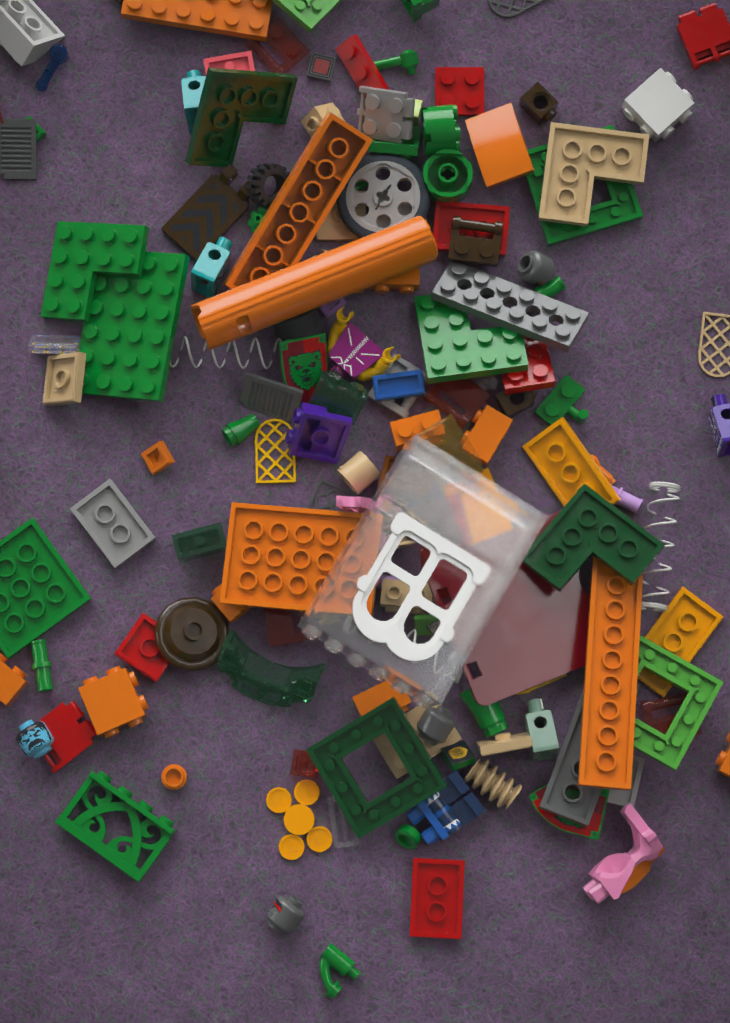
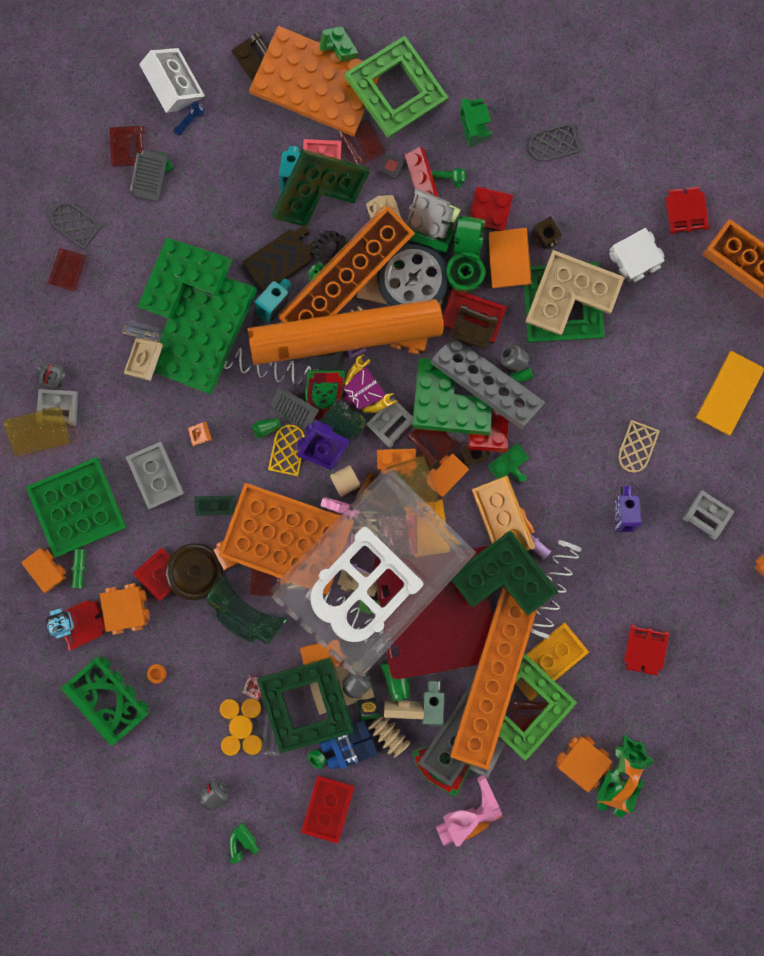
camera: 10 degrees right, 5 degrees up
(398, 385) = (390, 422): blue tile -> none

